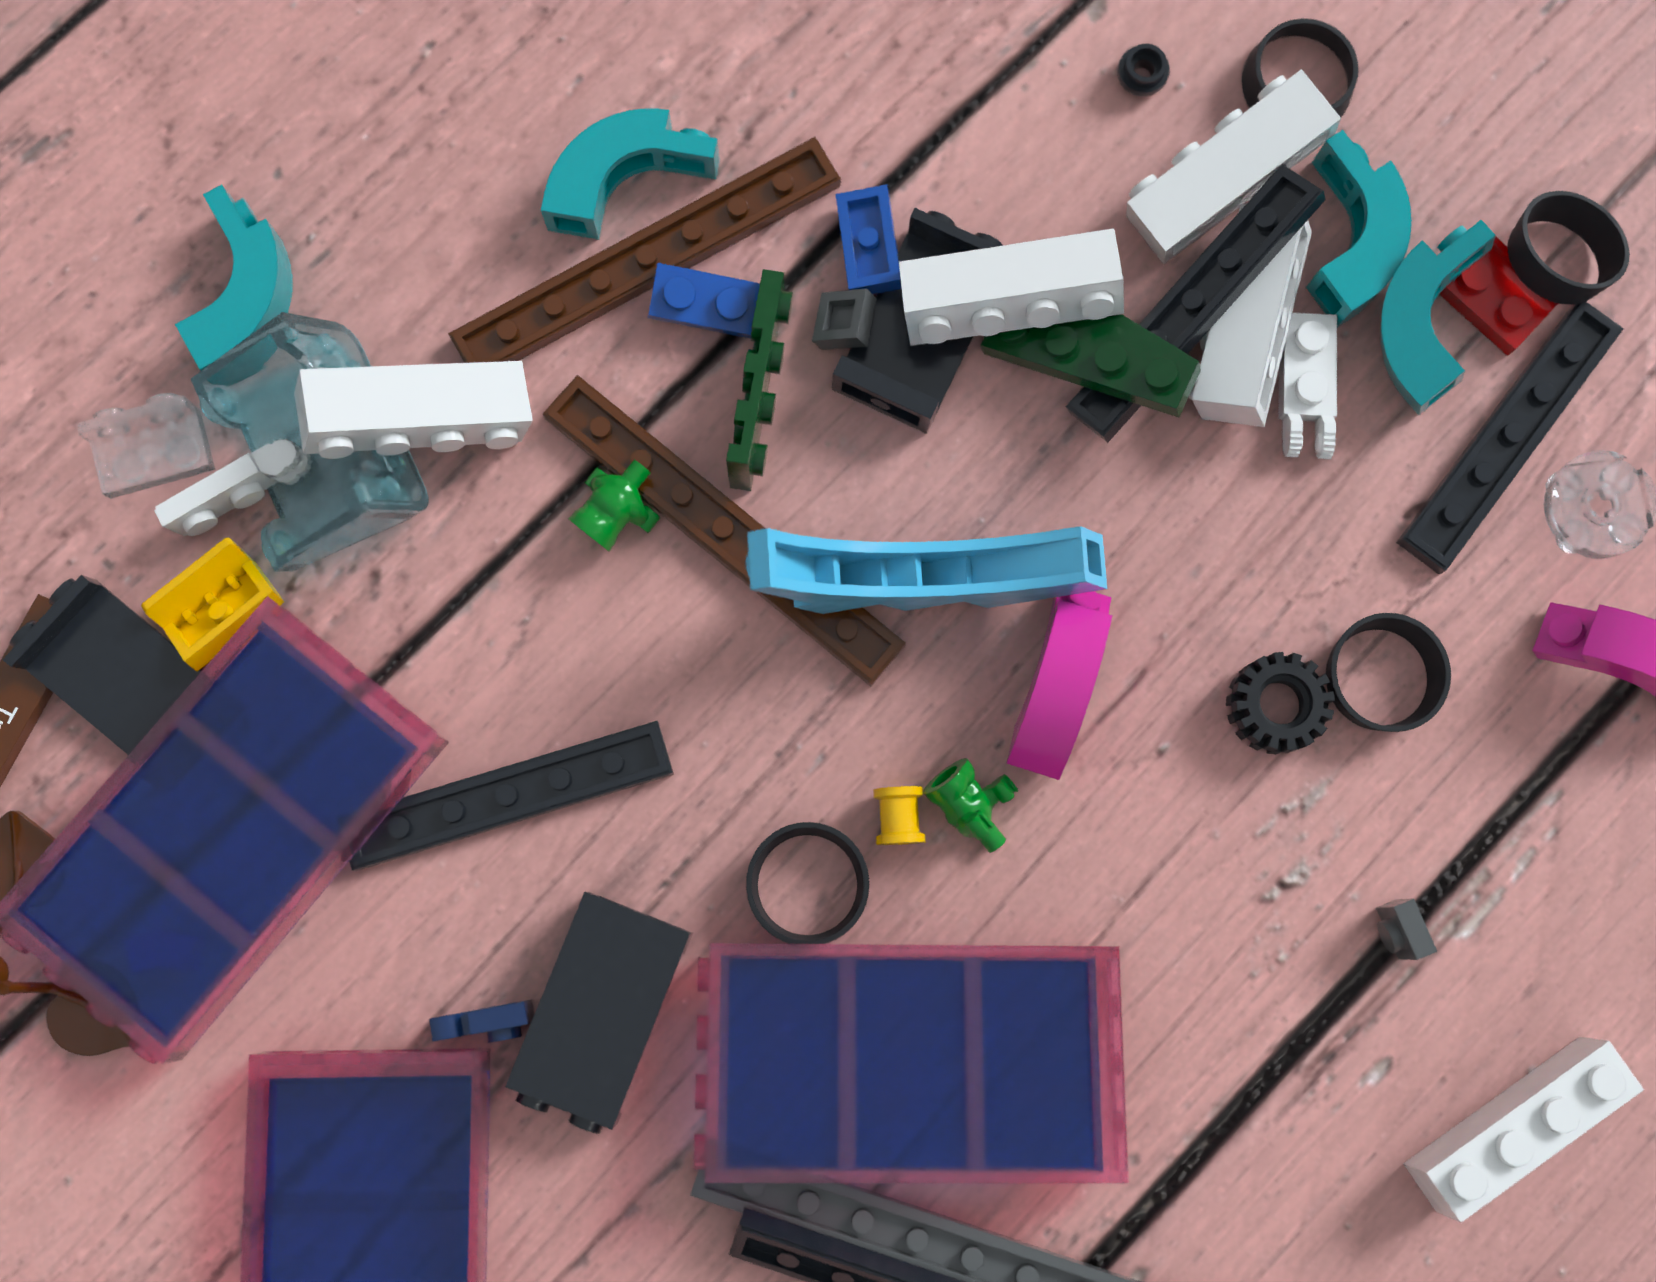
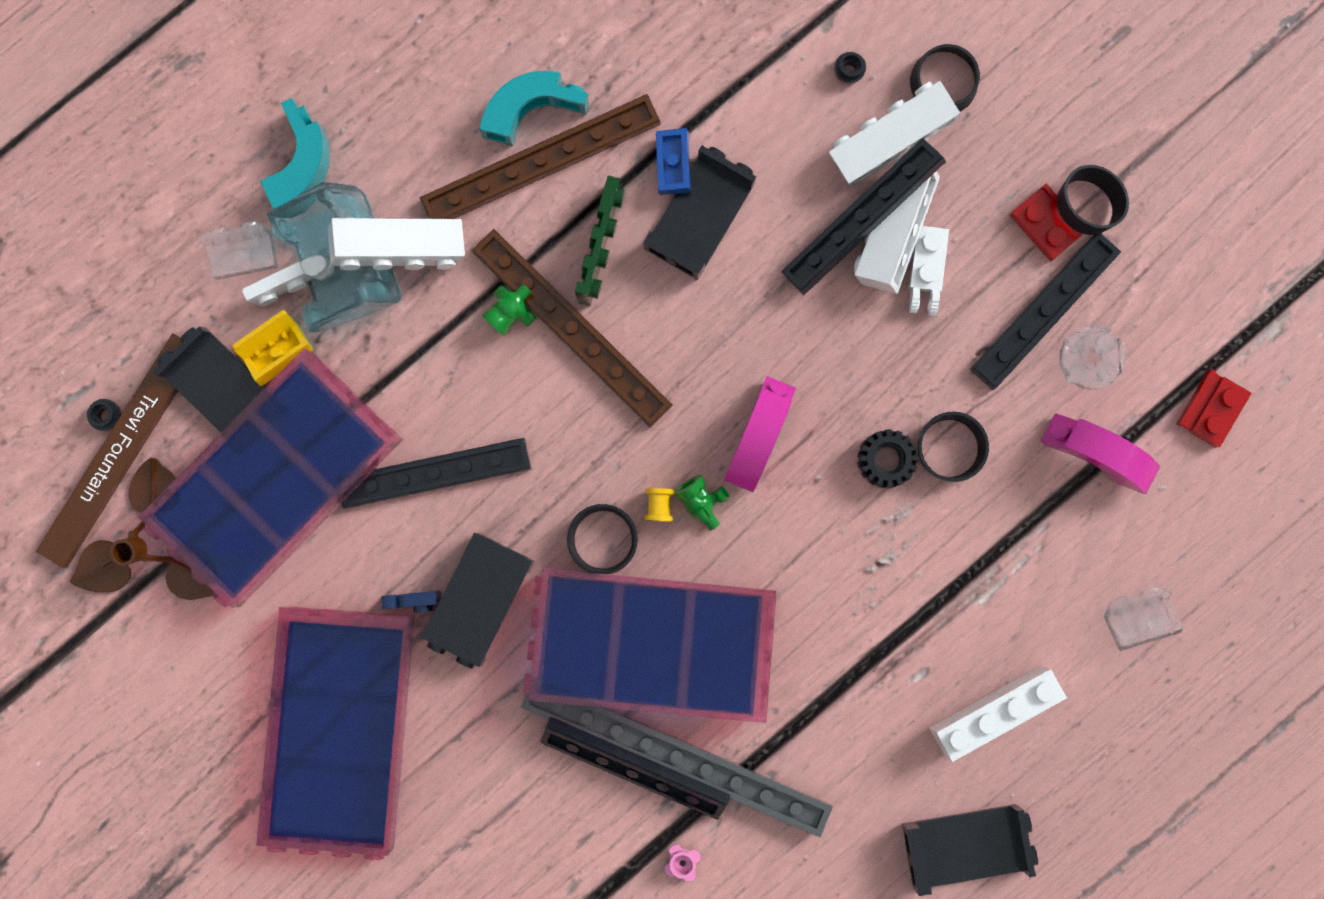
camera: 10 degrees right, 5 degrees up
(703, 300) = (571, 189): blue plate -> none
(844, 319) = (654, 208): dark grey plate -> none
(916, 575) = (685, 366): medium azure arch -> none
(1012, 287) = (753, 199): white brick -> none
(1104, 356) = (793, 233): dark green wing -> none
(1379, 228) = (981, 178): teal arch -> none
(1404, 930) = (943, 596): dark grey plate -> none
(1409, 347) = (990, 232): teal arch -> none

